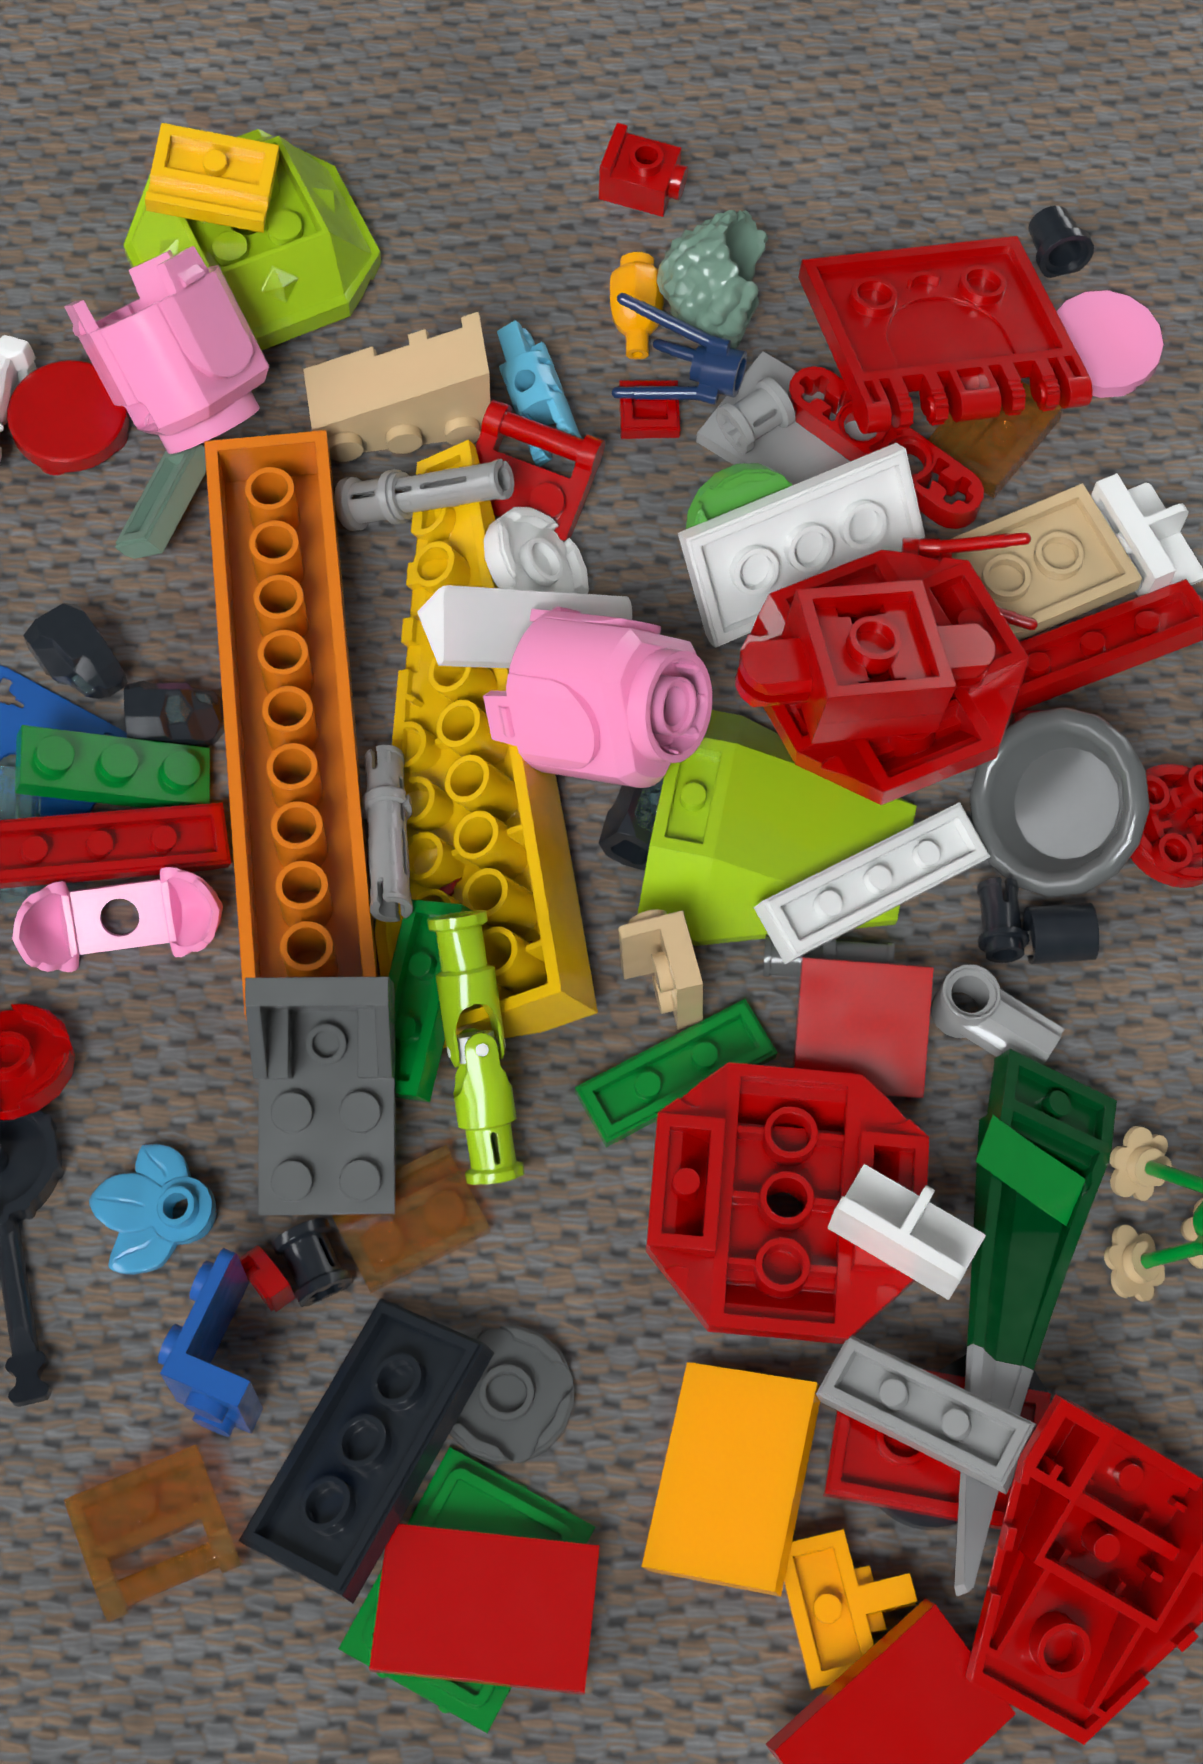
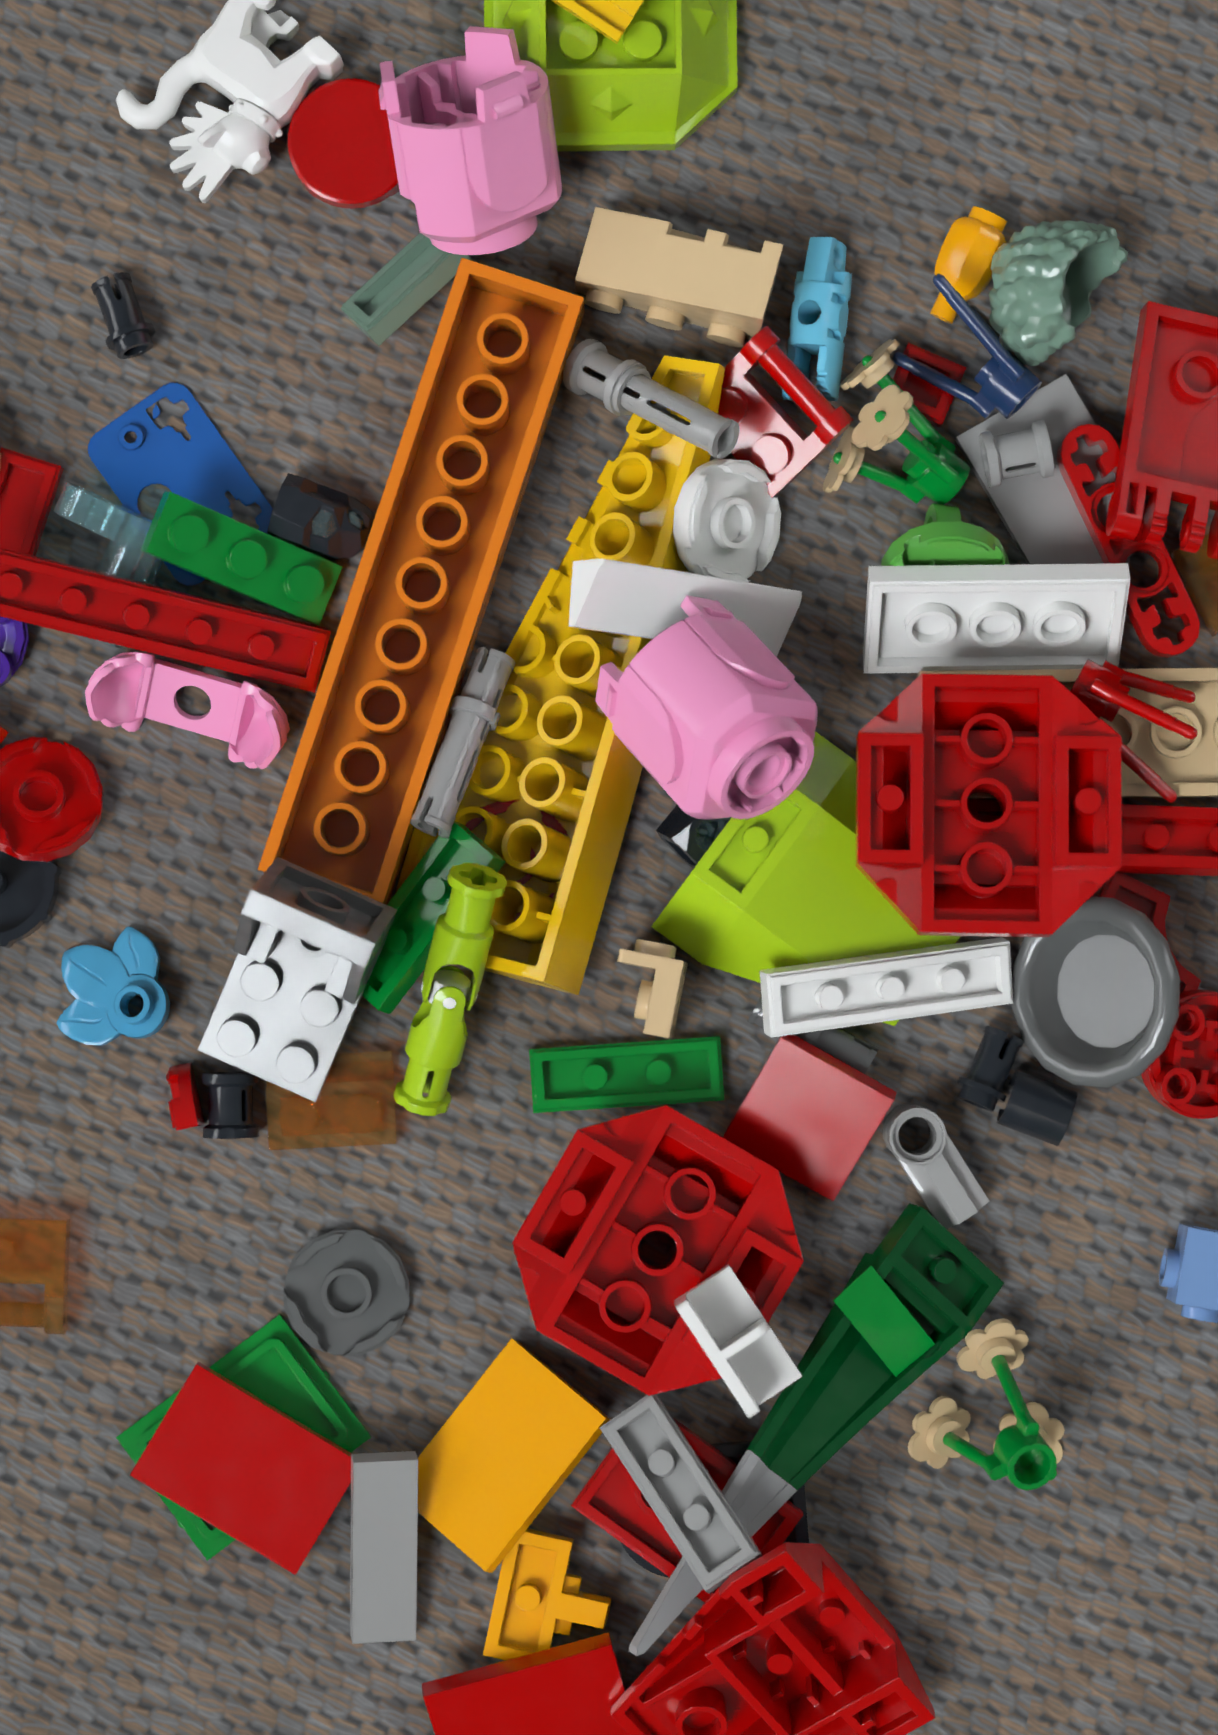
camera: 30 degrees right, 20 degrees up
(75, 652) = (256, 416): black rock -> none
(212, 1393) = (92, 1192): blue bracket -> none
(366, 1449) = (207, 1289): black tile -> none
(641, 172) = (1020, 113): red brick -> none
(661, 1624) = (383, 1547): none -> light grey tile
(687, 457) = (930, 464): none -> plant
(861, 630) = (957, 816): red brick -> none

